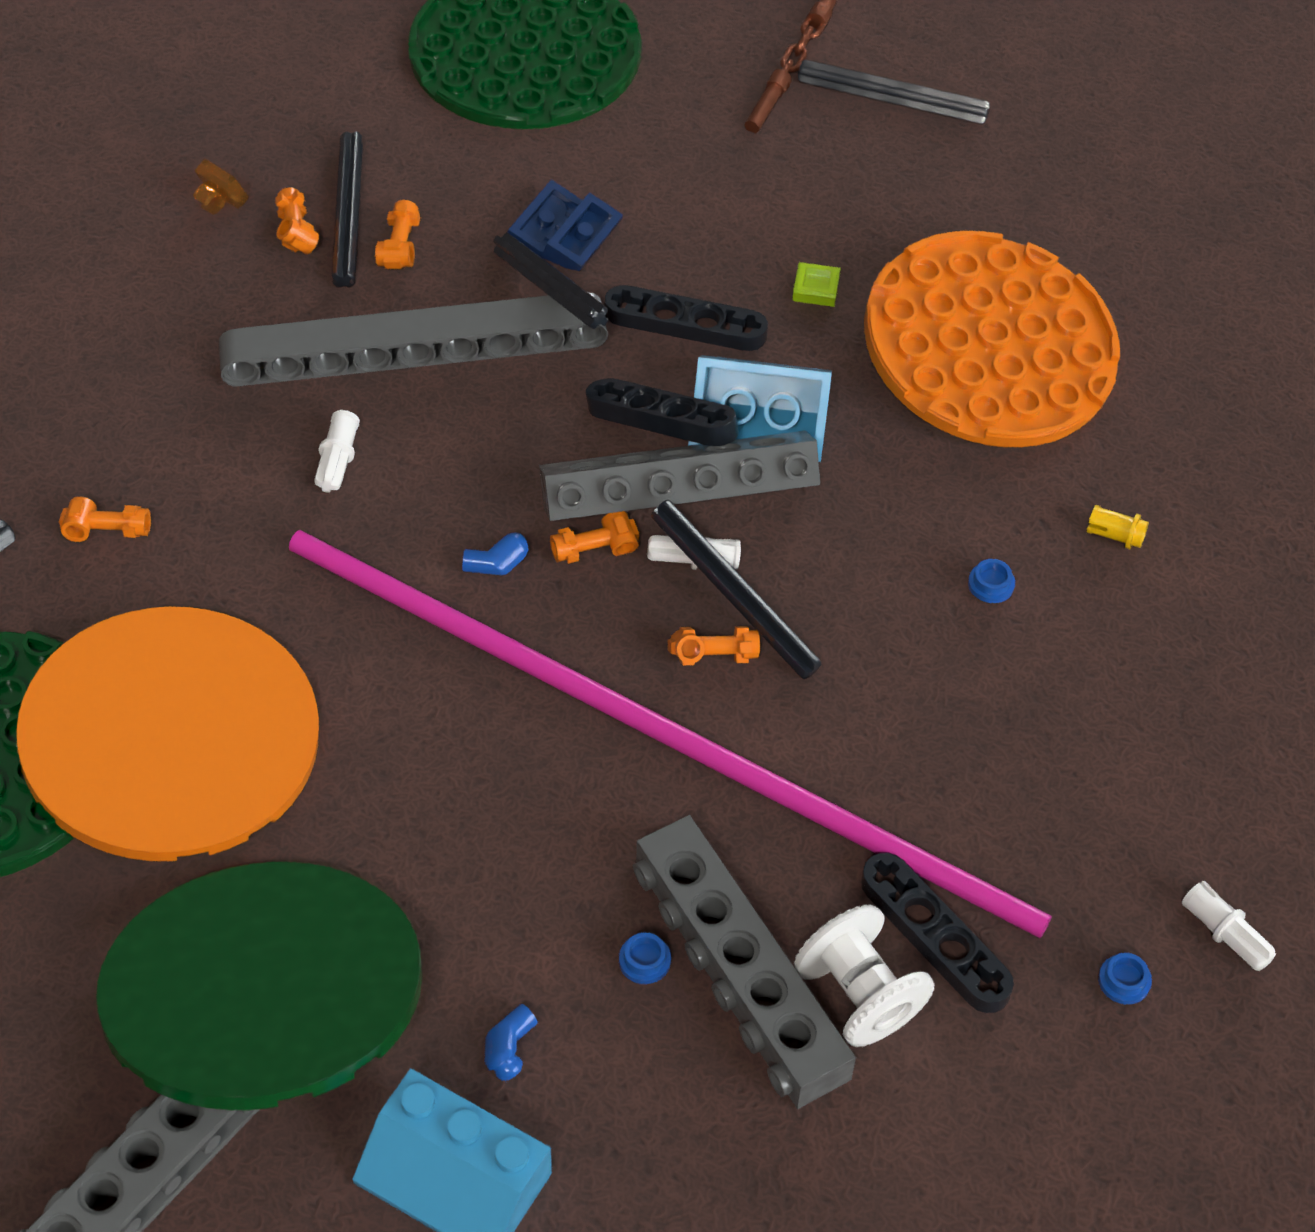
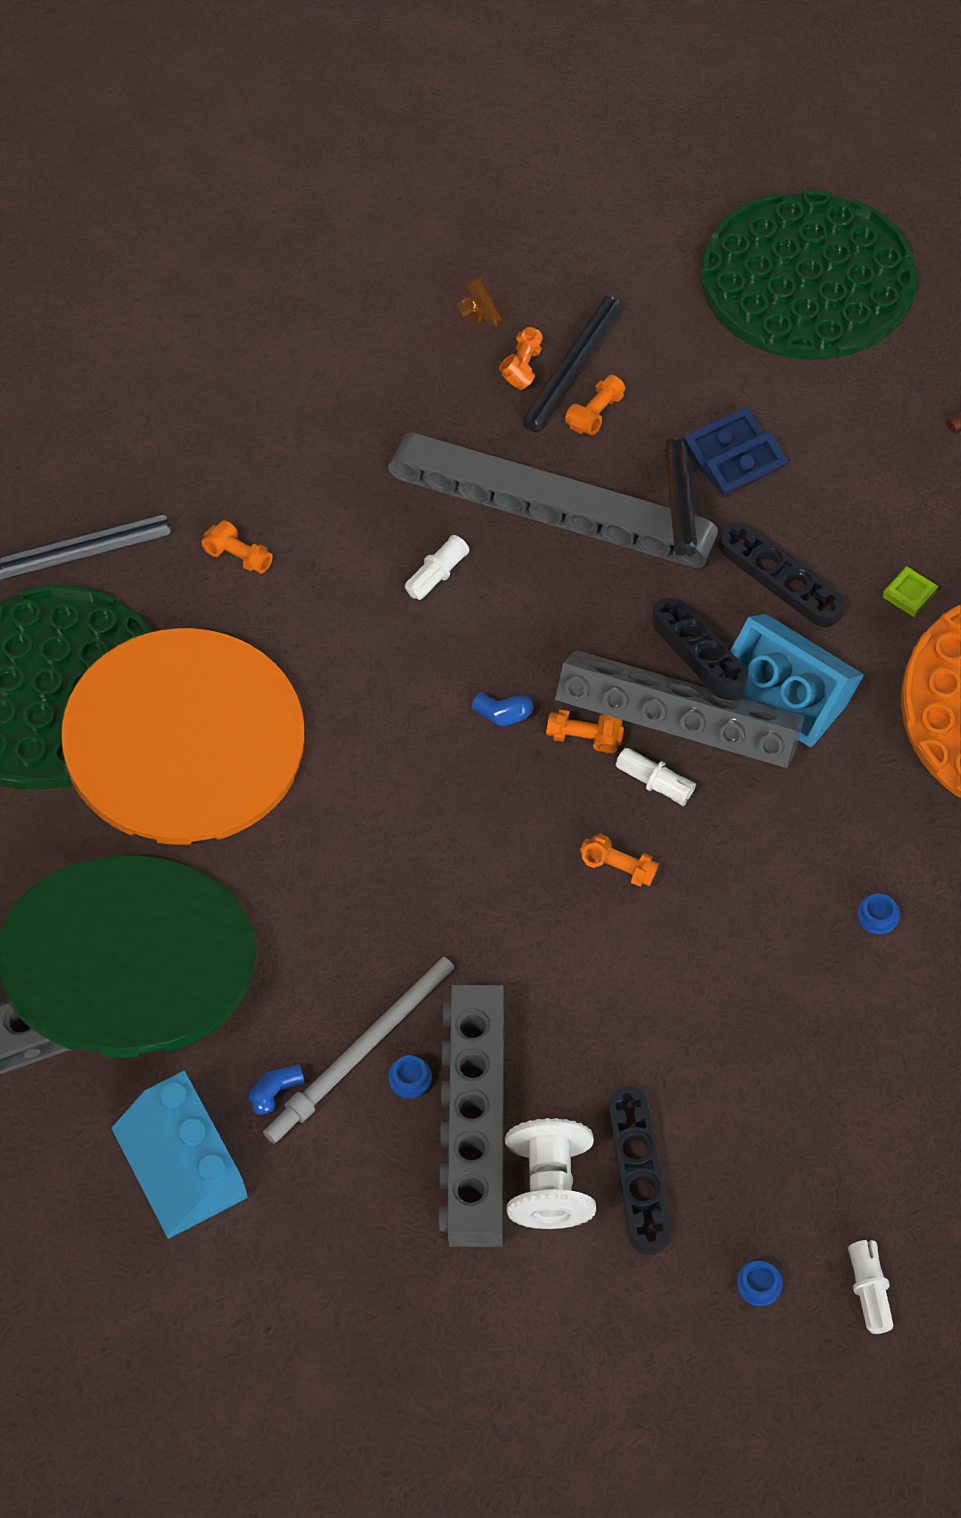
camera: 35 degrees right, 5 degrees up
(551, 1044) = (301, 1105): none -> light grey bar
(673, 735) = (548, 924): dark pink piece -> none
(736, 589) = (661, 824): black axle -> none

